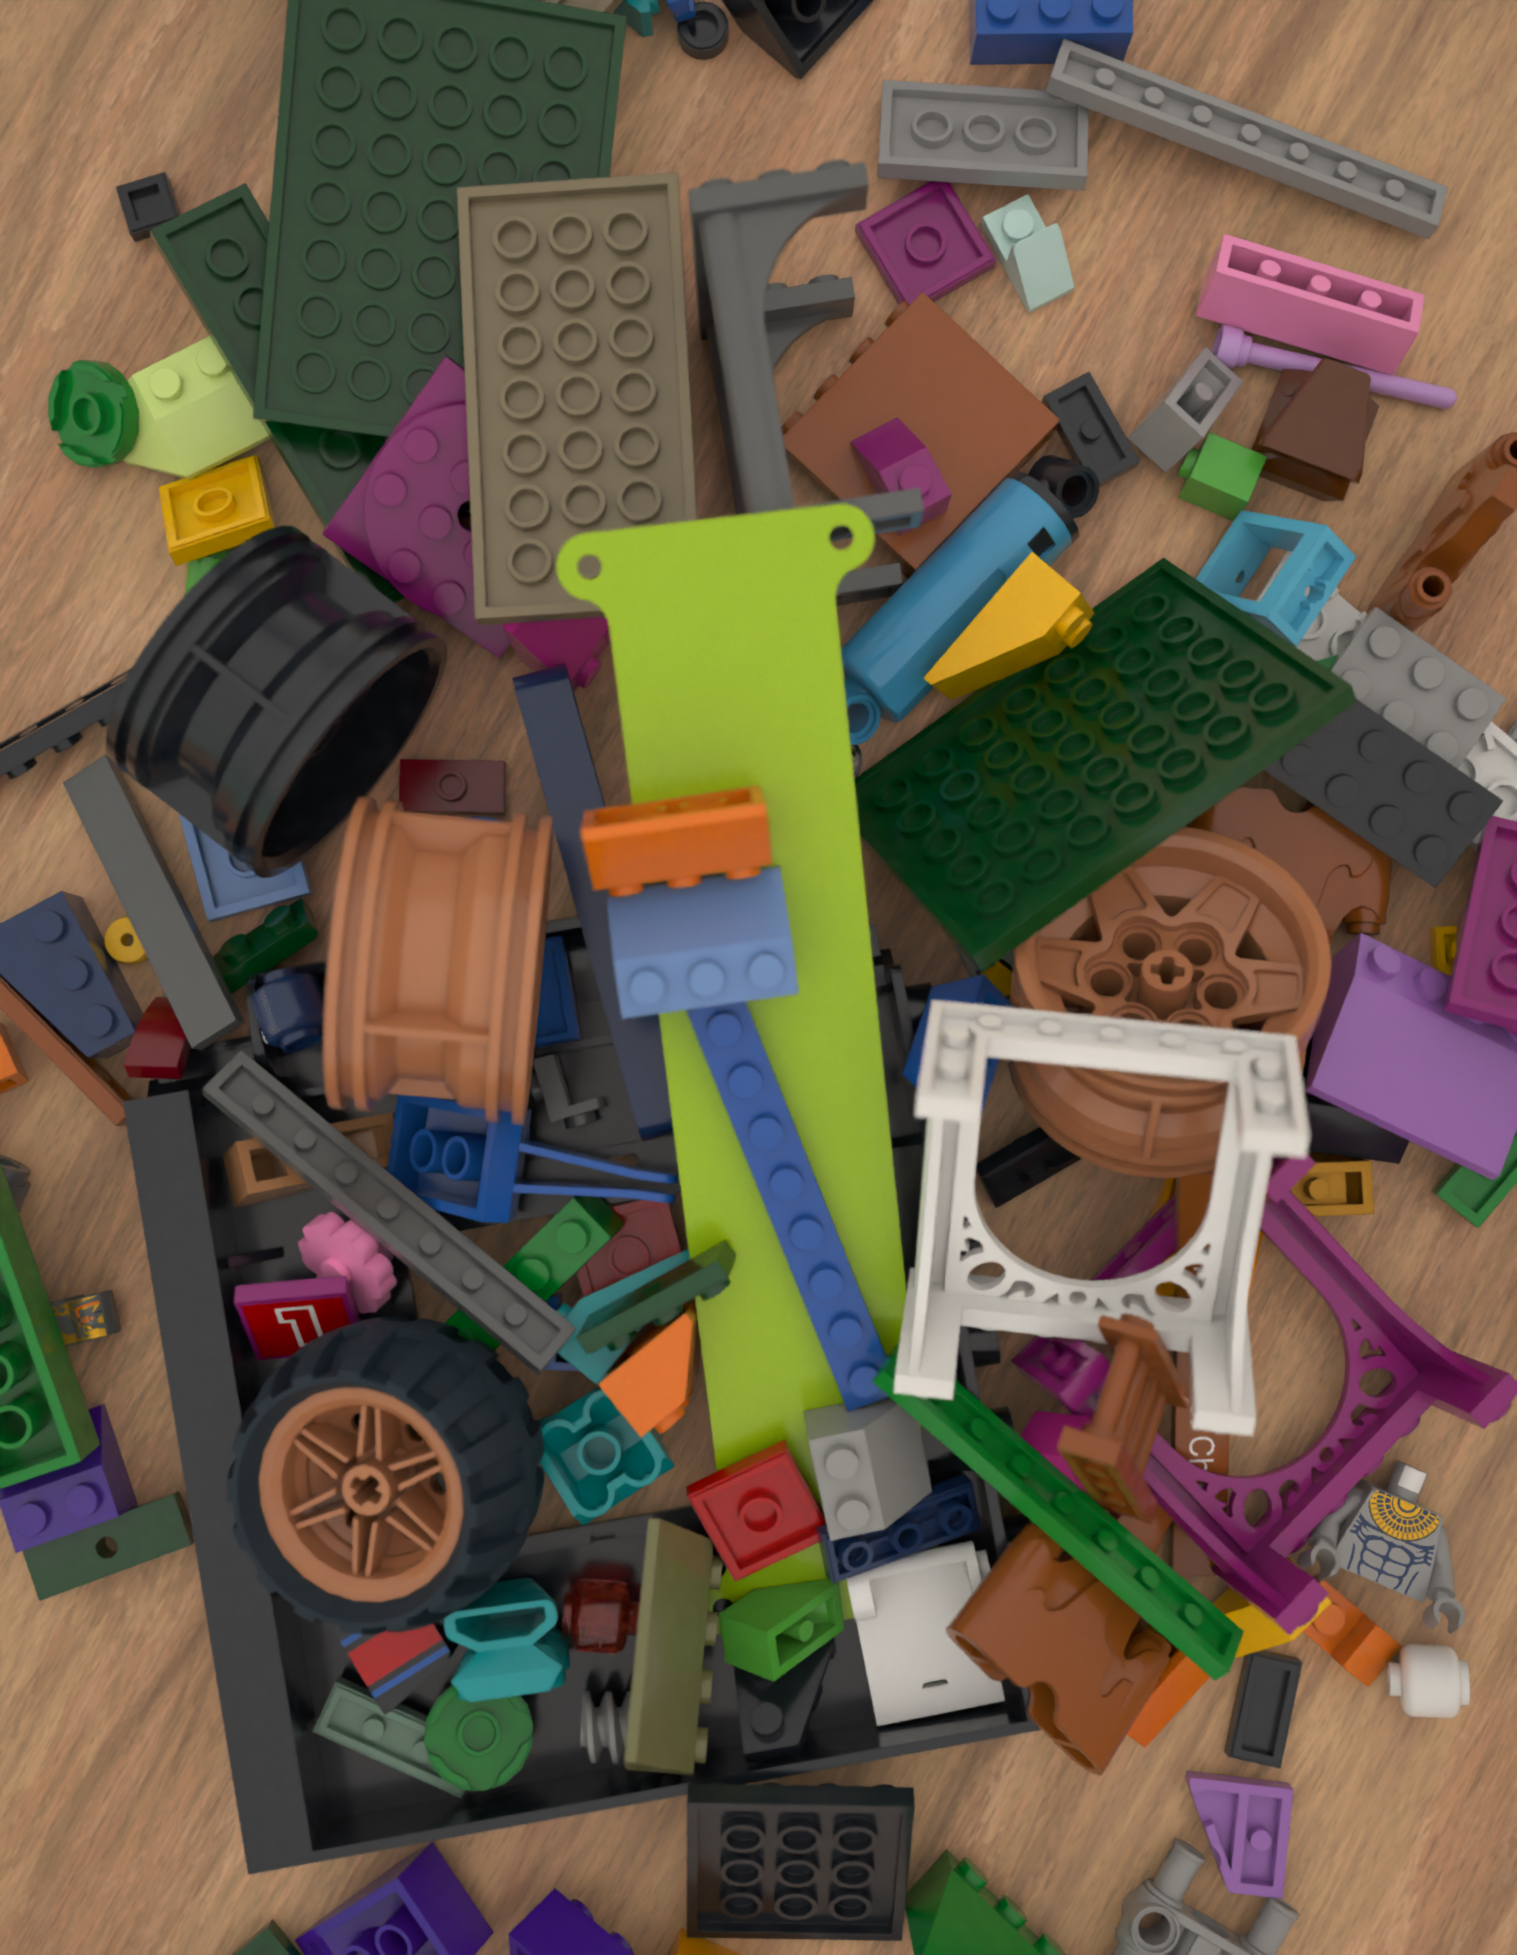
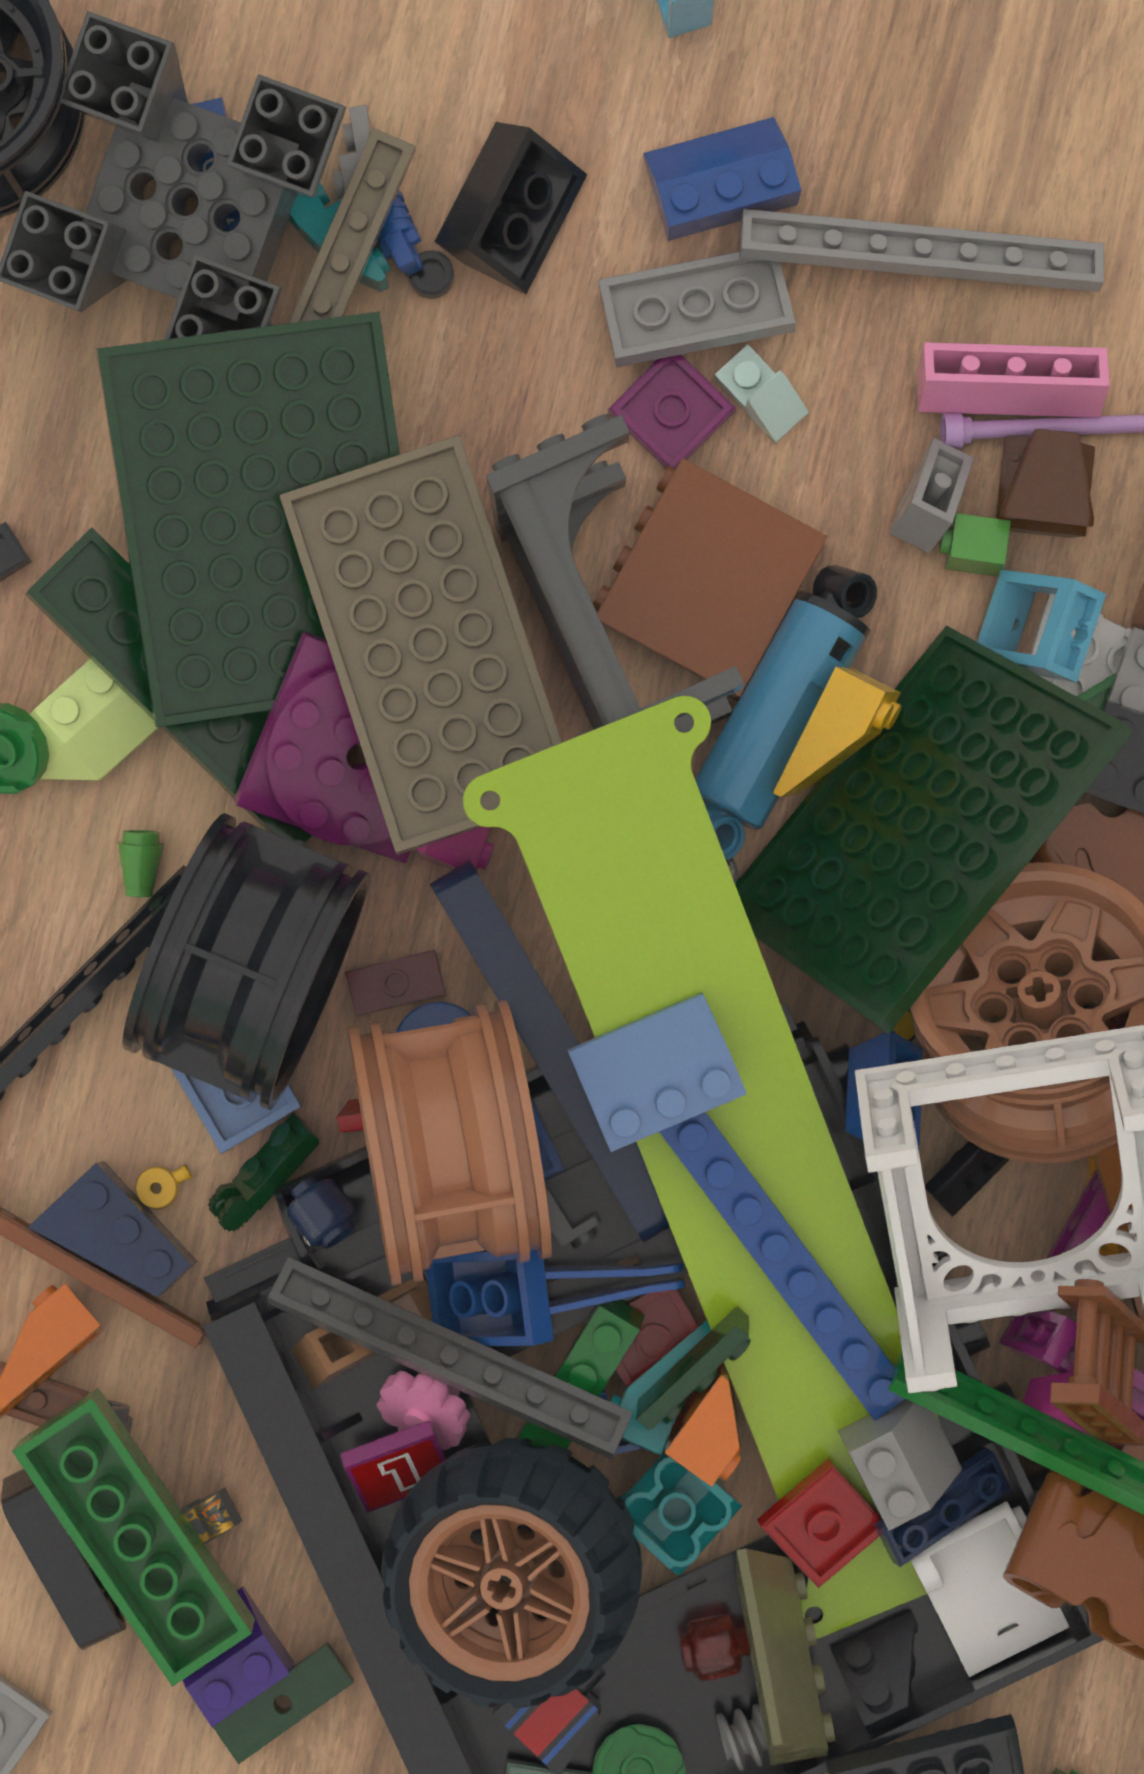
camera: 10 degrees left, 0 degrees up
(153, 903) = (173, 1151): dark grey tile -> none
(158, 1045) = (216, 1263): dark red slope -> none
(215, 509) = (133, 802): yellow tile -> none
(508, 1643) = (645, 1687): teal piece -> none
(677, 840) = (617, 996): orange slope -> none
(780, 1626) = (866, 1615): bright green slope -> none
(900, 461) = (706, 621): magenta slope -> none
(1091, 429) = (855, 533): black plate -> none

